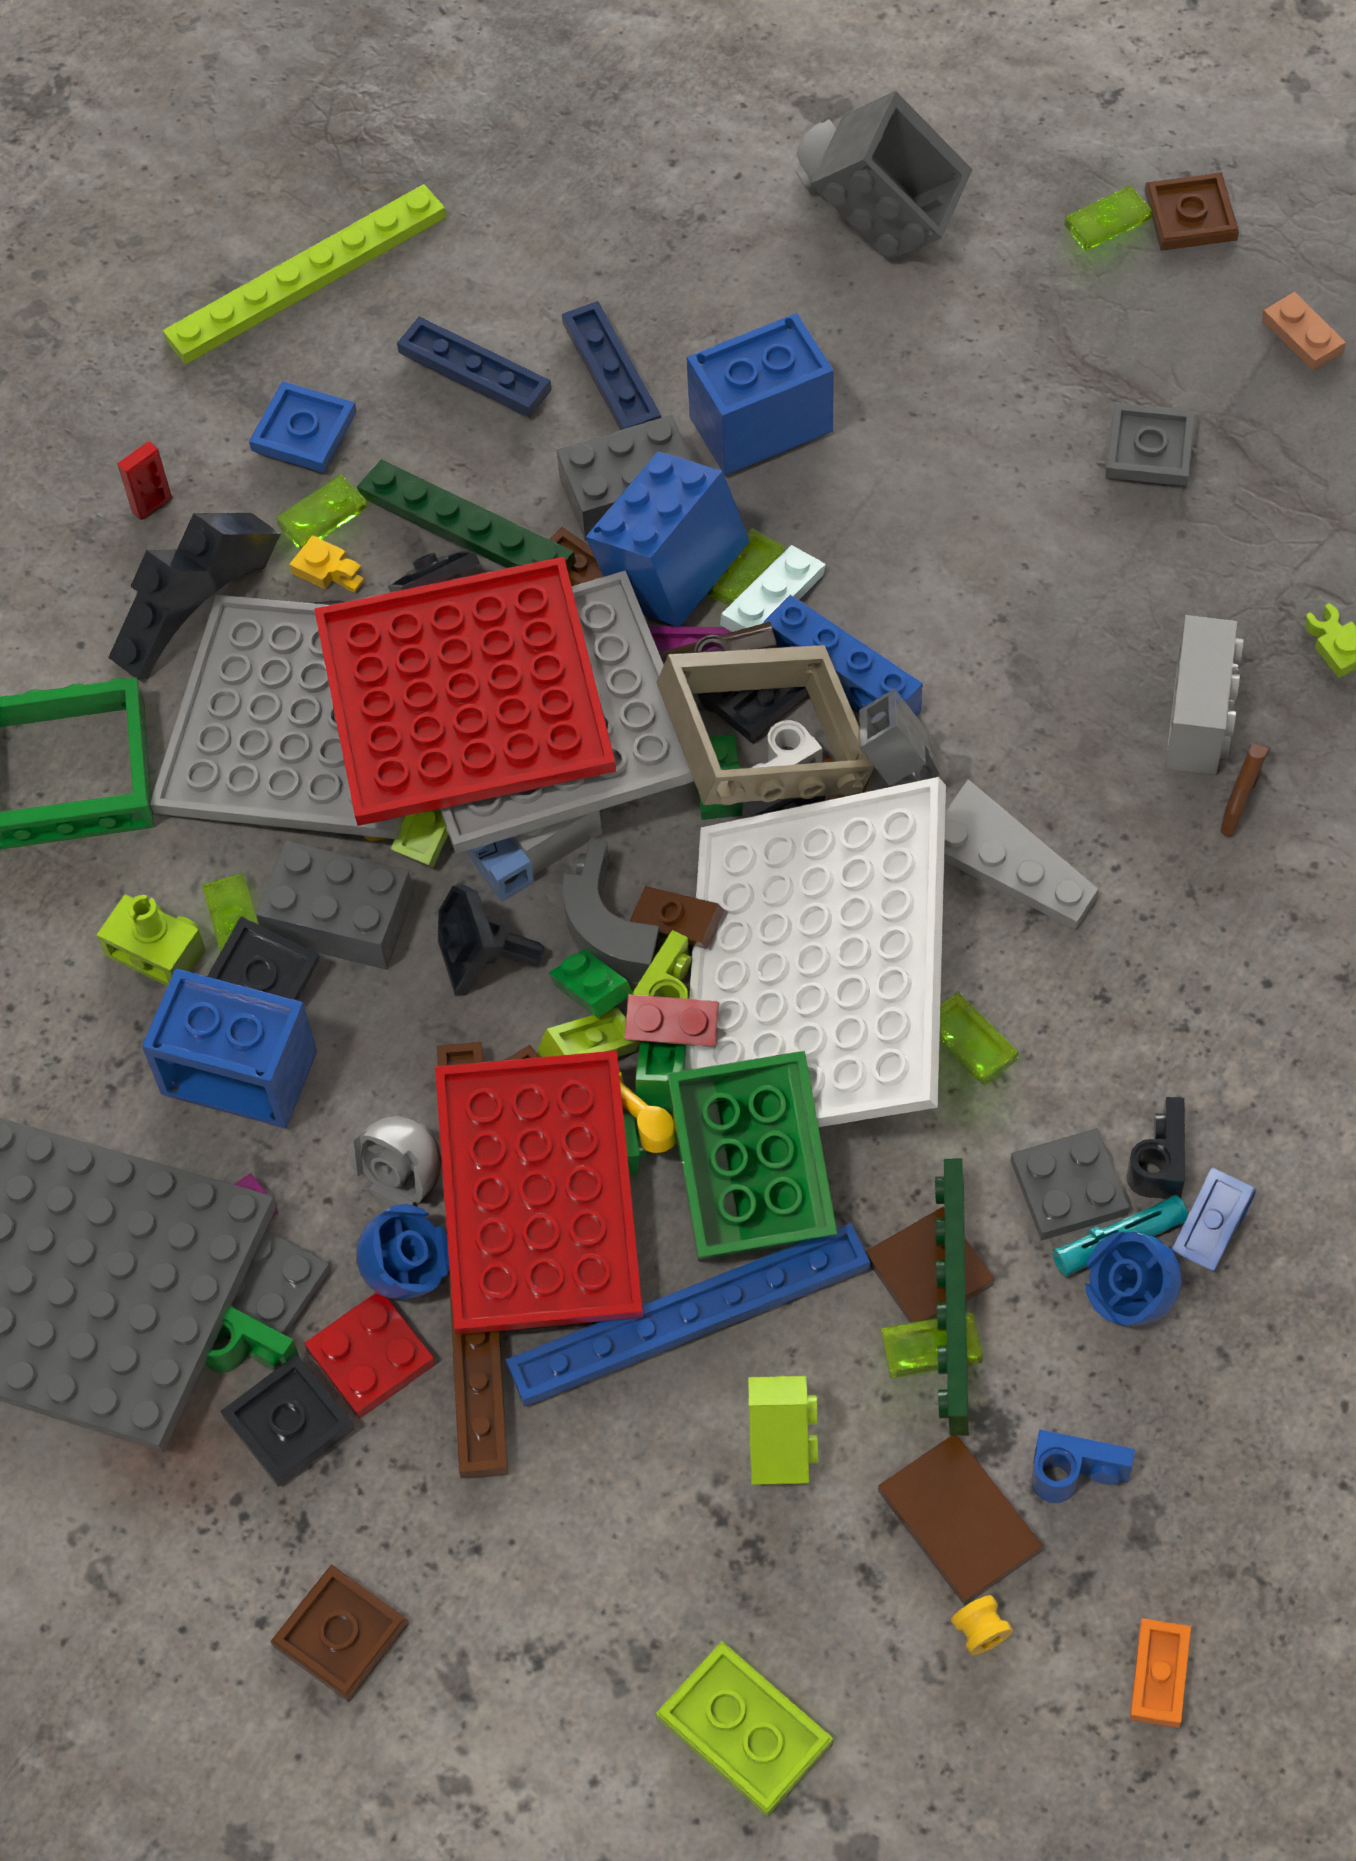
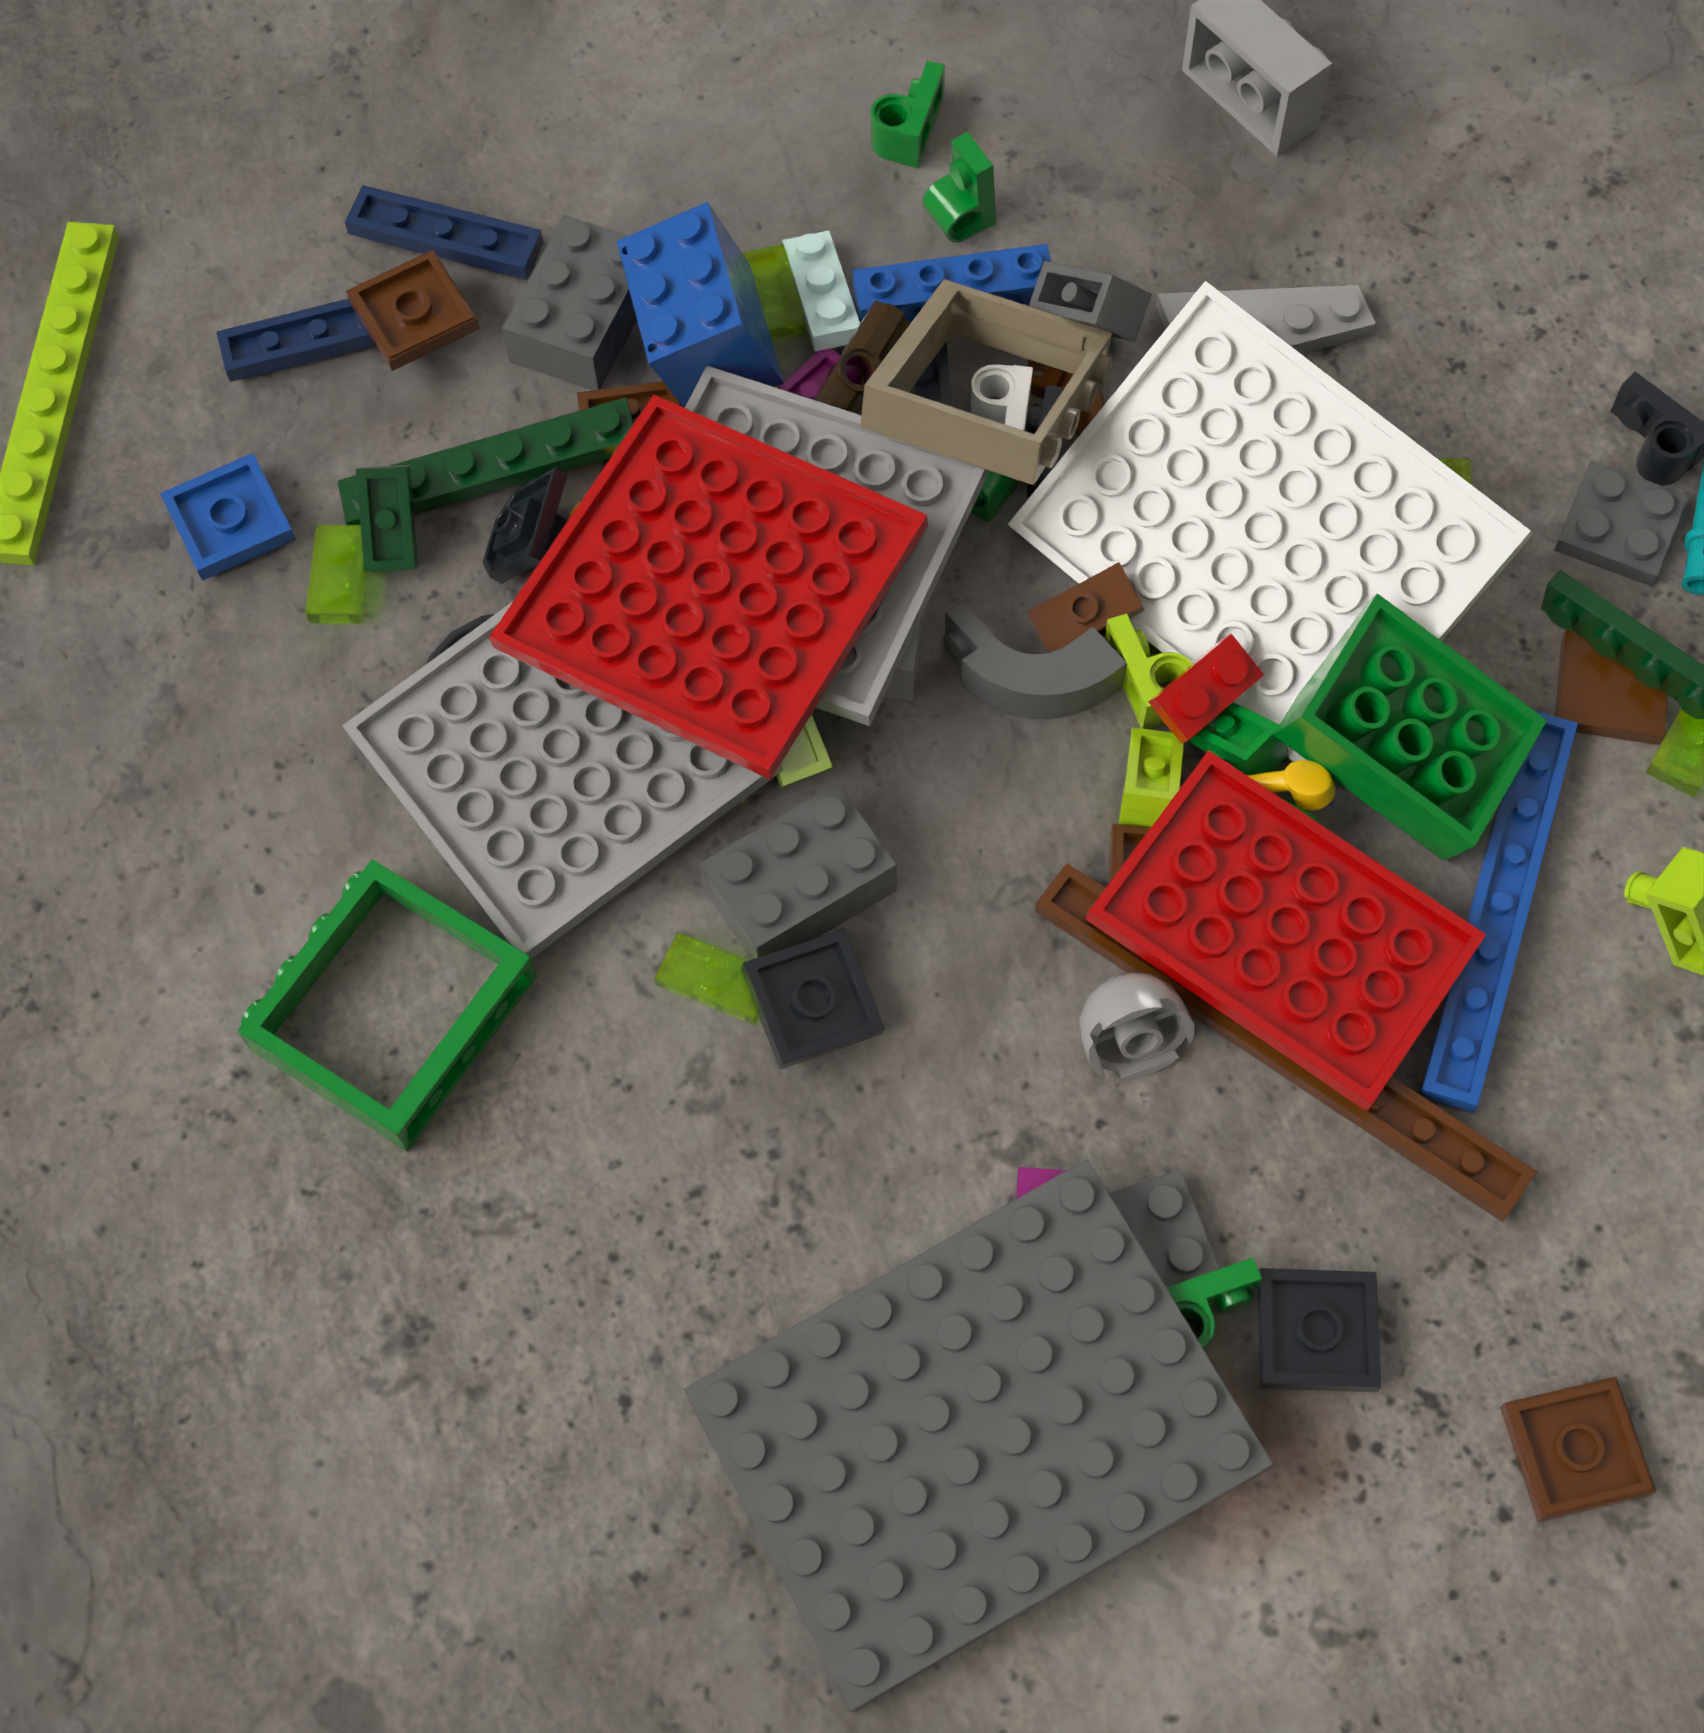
camera: 50 degrees left, 5 degrees up
(144, 480) = (150, 686): red plate -> none
(149, 939) = (677, 1066): lime brick -> none
(179, 580) = (310, 743): black arch -> none
(230, 1048) = (892, 1074): blue container -> none
(323, 563) = (399, 614): yellow plate -> none
(369, 1354) = (1303, 1206): red plate -> none
(372, 502) = (386, 518): none -> dark green plate
(402, 1253) = (1242, 1095): blue cylinder -> none
(474, 939) = (953, 787): black piece -> none
(499, 863) = (896, 717): medium blue leg -> none
(531, 397) = (412, 310): none -> reddish brown tile
(590, 983) = (1092, 727): green plate -> none
(760, 393) = (620, 131): blue container -> none
(922, 612) = (965, 197): none -> green plate
(958, 542) = (904, 123): none -> green plate
(1246, 780) = (1357, 100): reddish brown piece -> none

